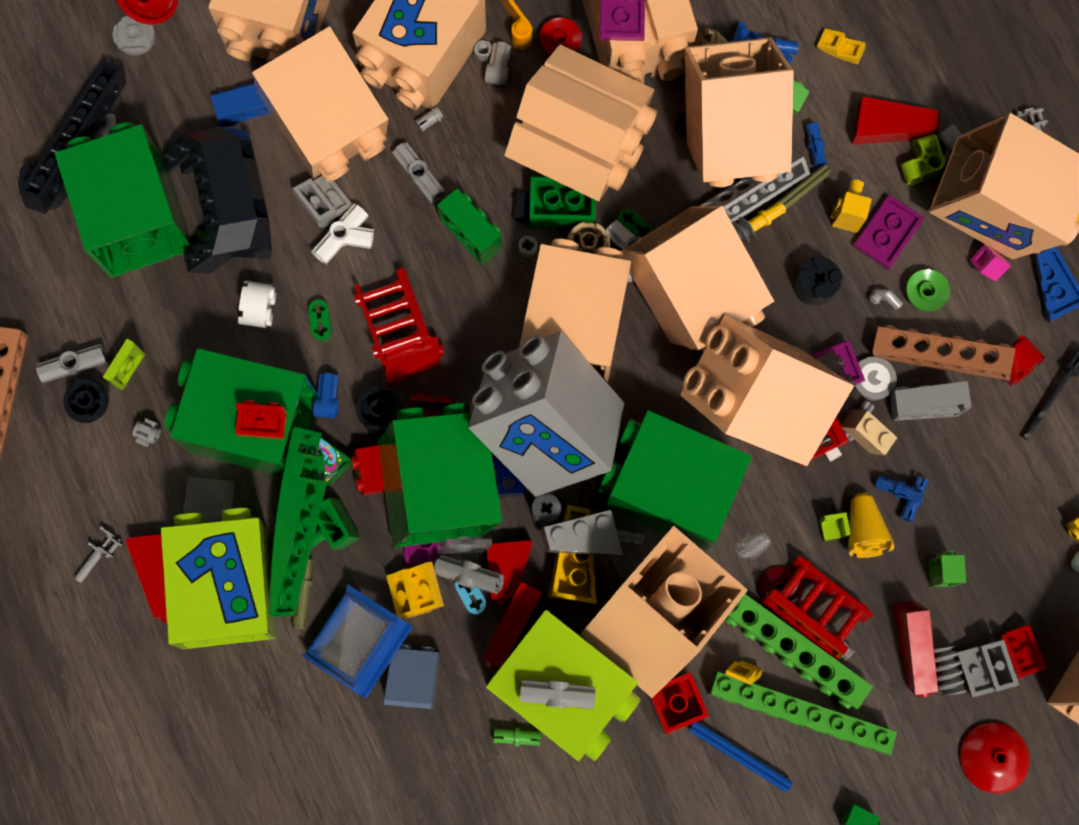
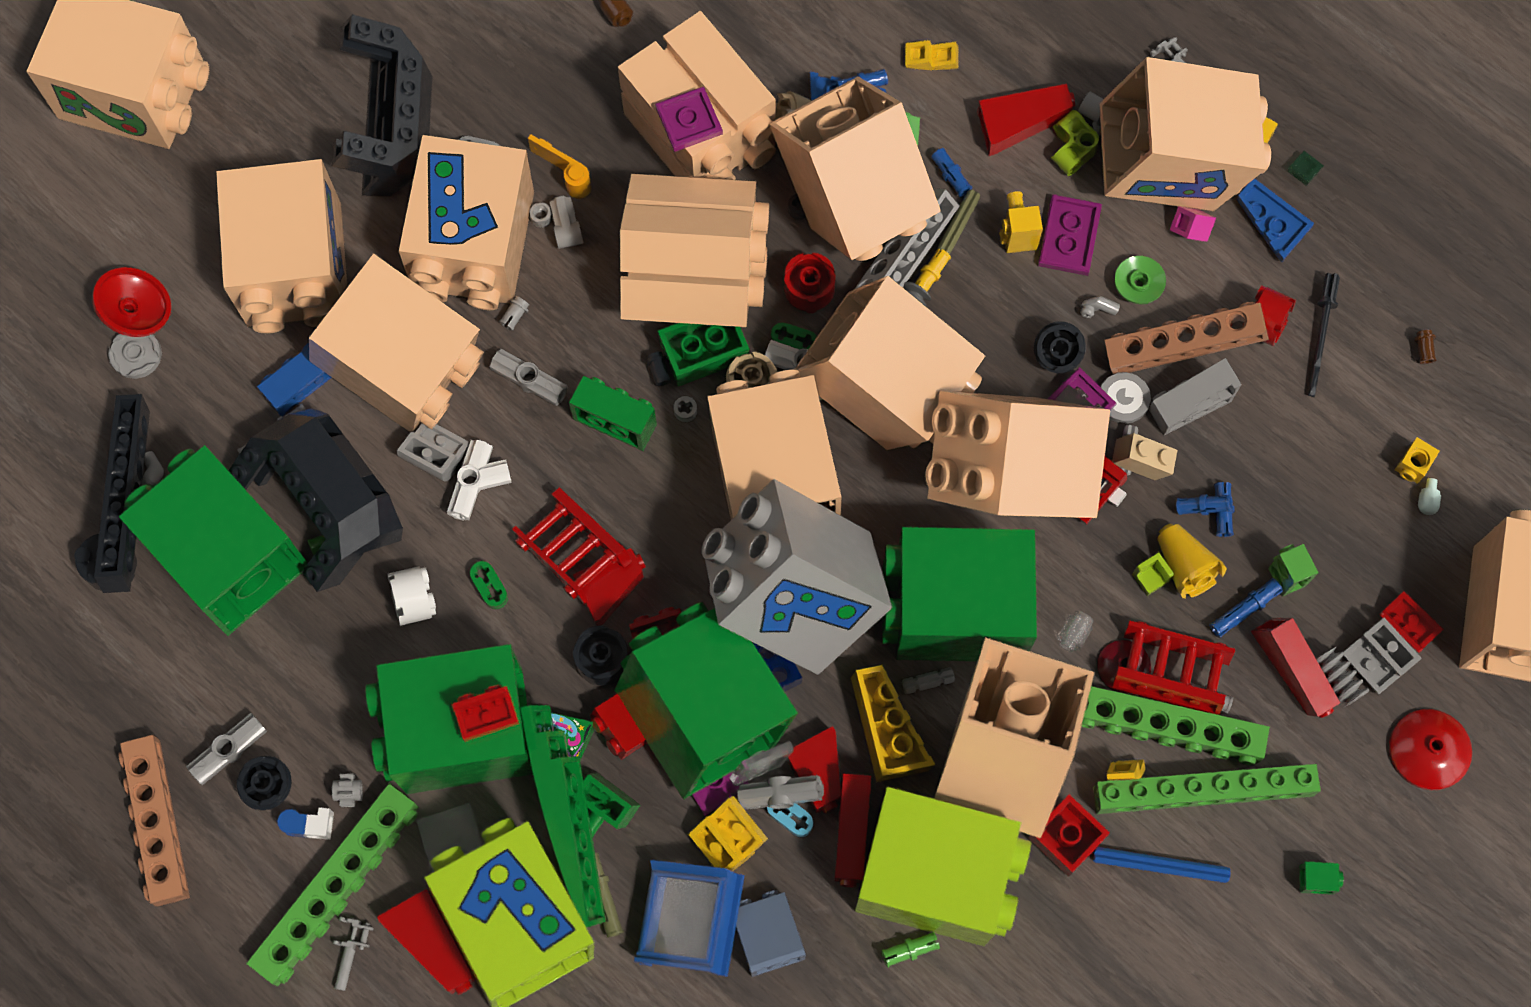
camera: 20 degrees left, 5 degrees down
(32, 534) = (265, 958): none -> bright green brick
(100, 443) = (306, 825): none -> leg
(124, 365) = (290, 724): lime tile -> none
(326, 402) = (536, 670): blue piece -> none
(548, 502) = (827, 680): dark grey piece -> none
(557, 694) = (940, 870): light grey piece -> none
(560, 29) = (620, 156): red dish -> none
(585, 535) = (890, 694): light grey wedge -> none
(671, 176) = (799, 286): none -> red brick
(825, 272) = (1018, 304): black brick -> none
(839, 317) = (1059, 347): none -> black cone
(904, 582) = (1255, 601): none -> blue pin

